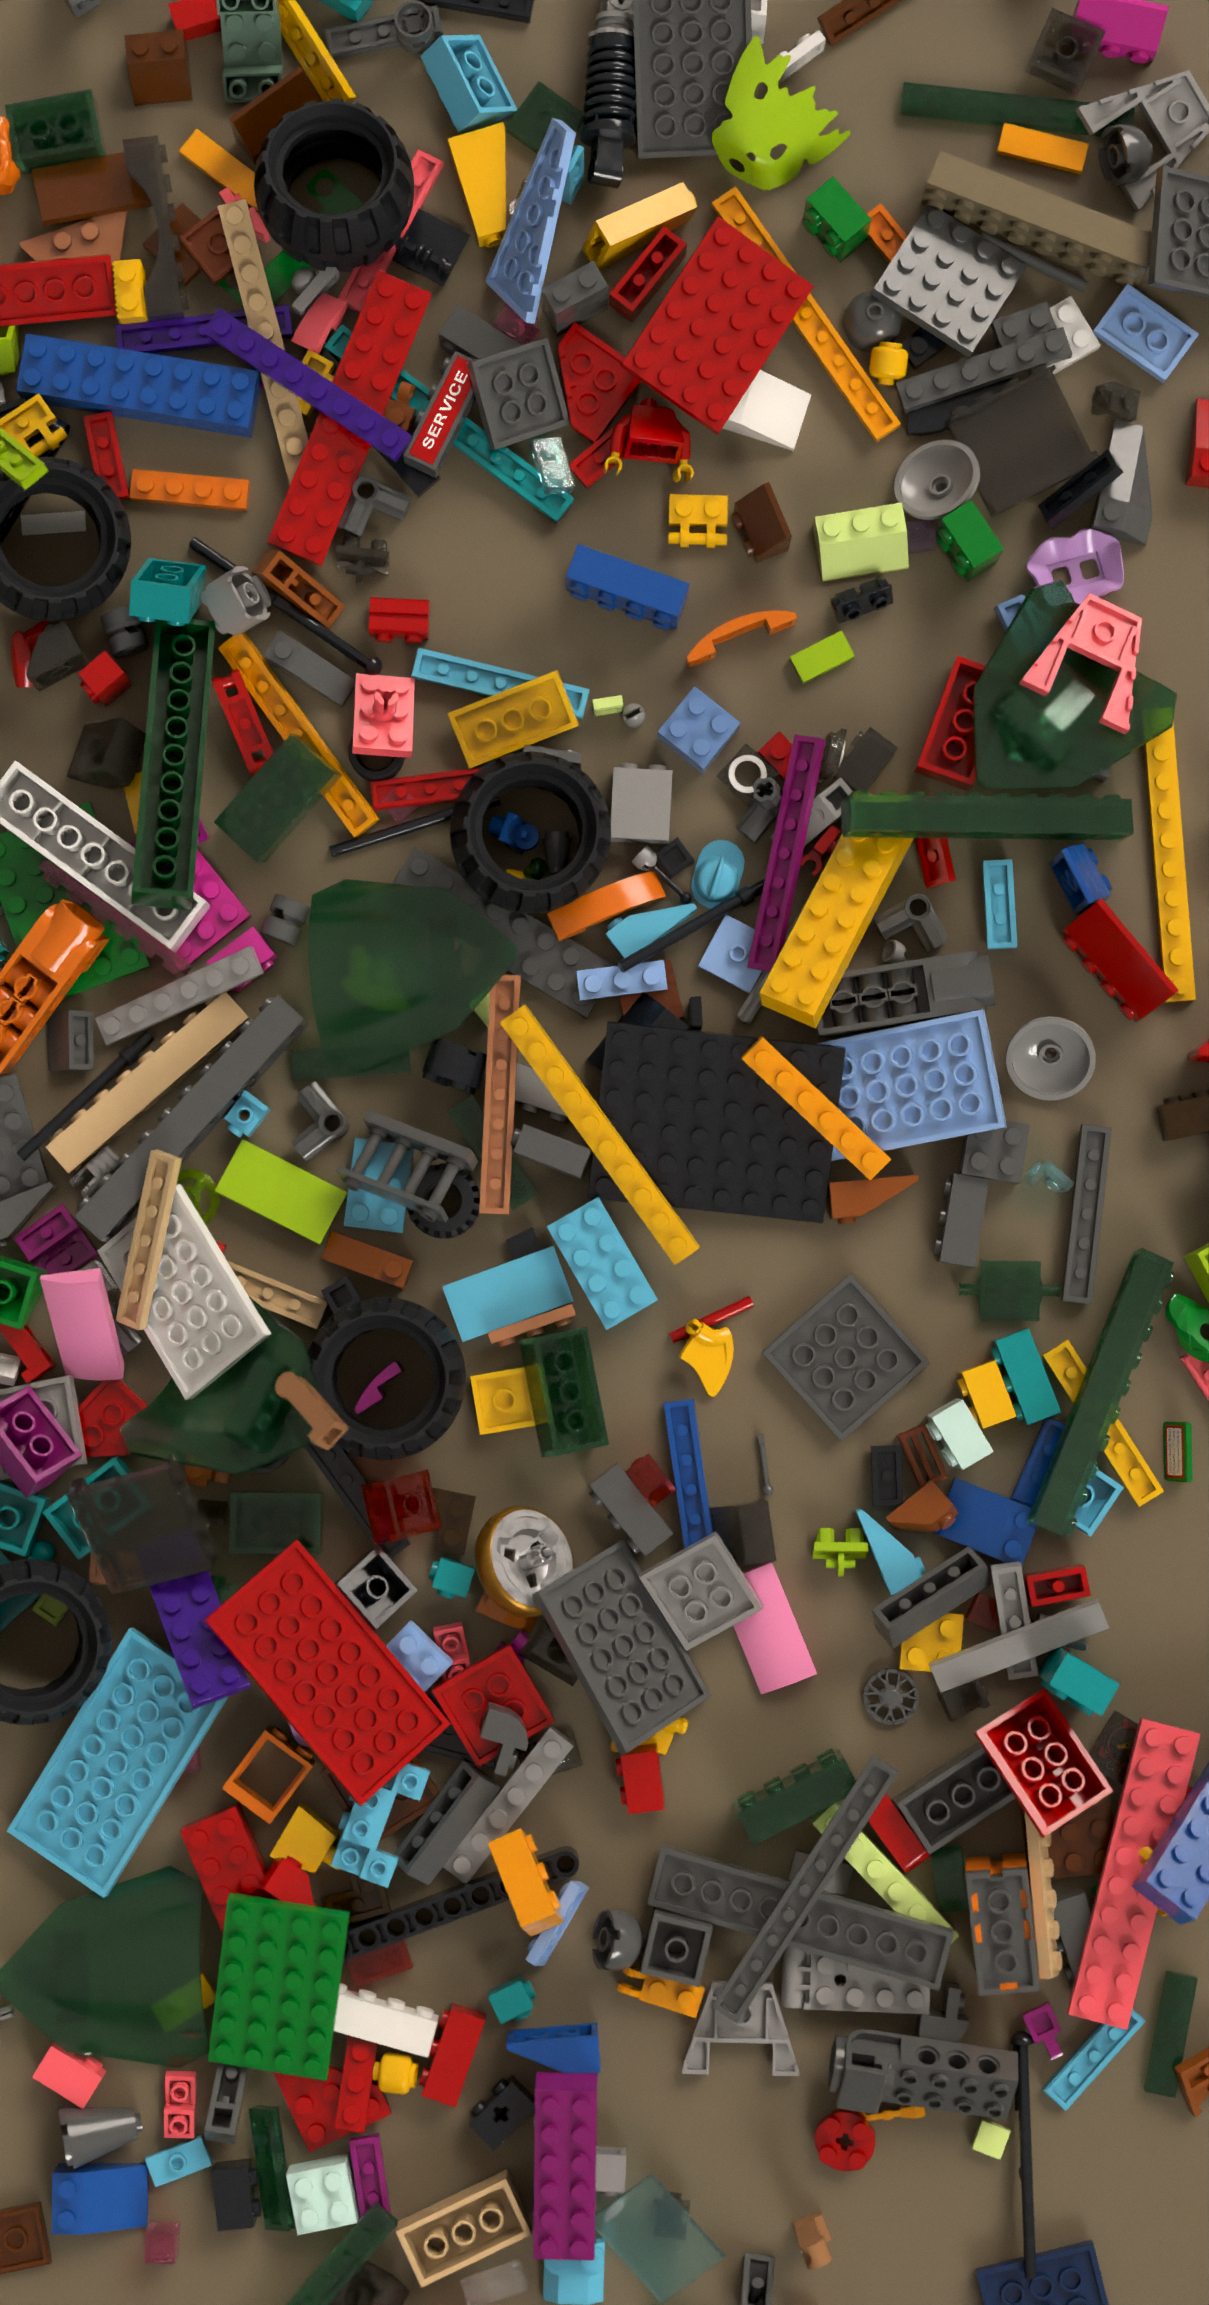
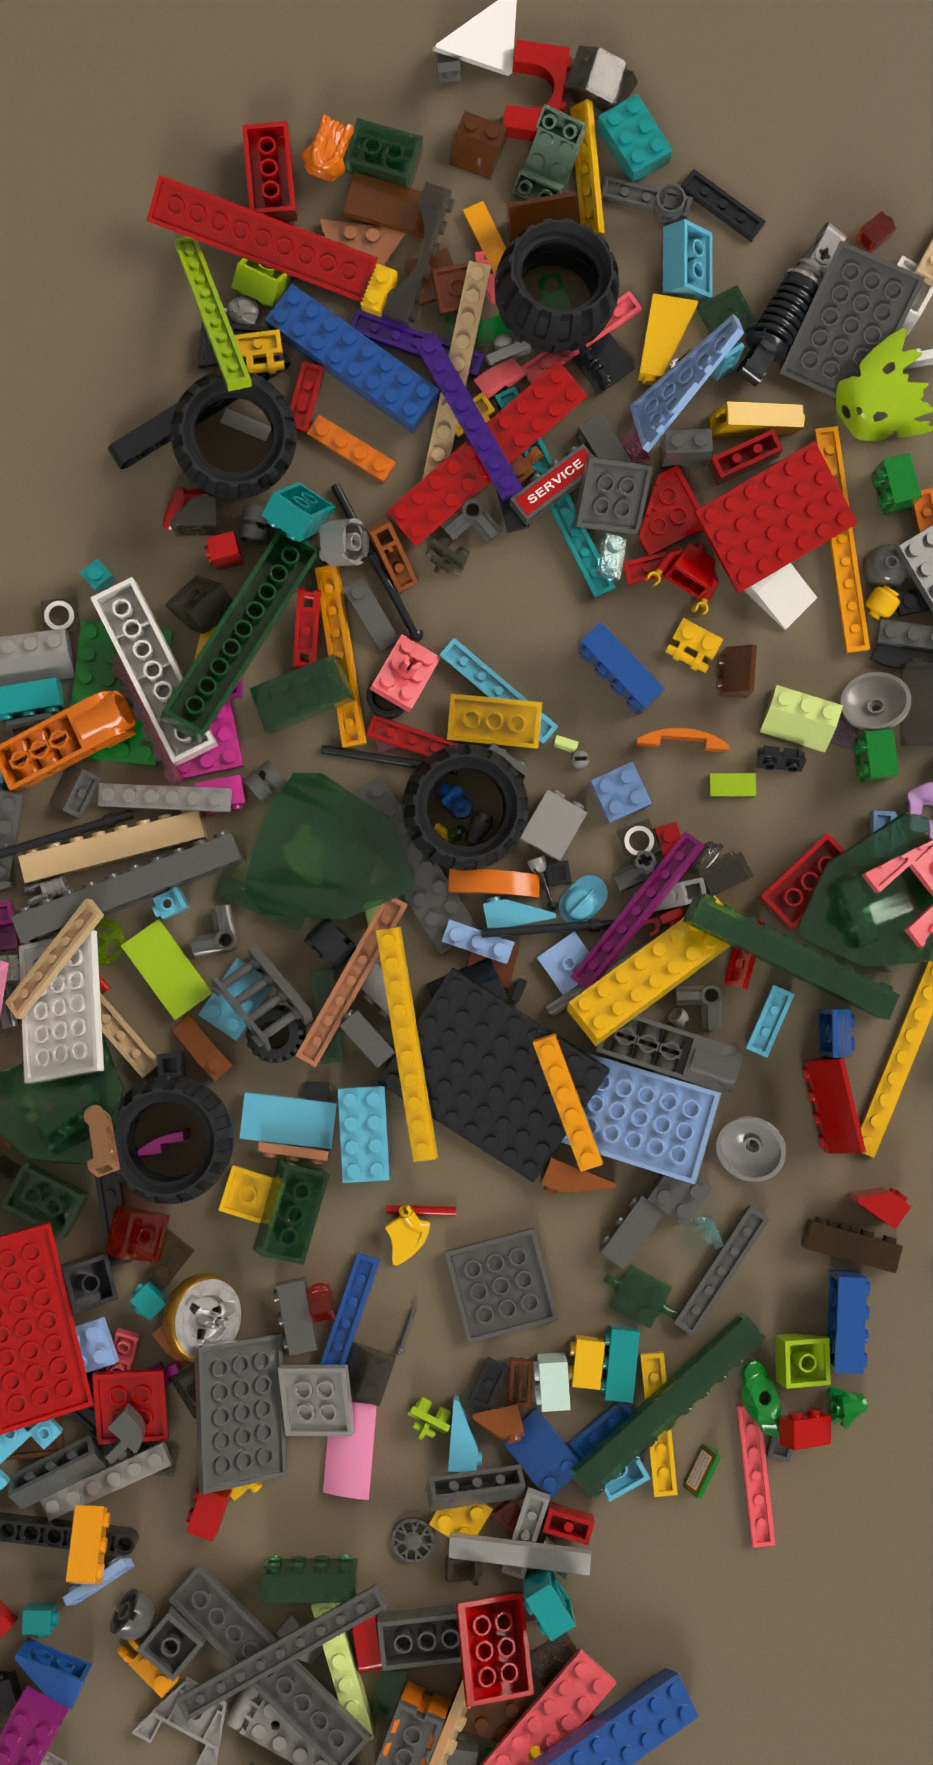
camera: 25 degrees right, 0 degrees up
(399, 619) = (451, 611): red brick -> none

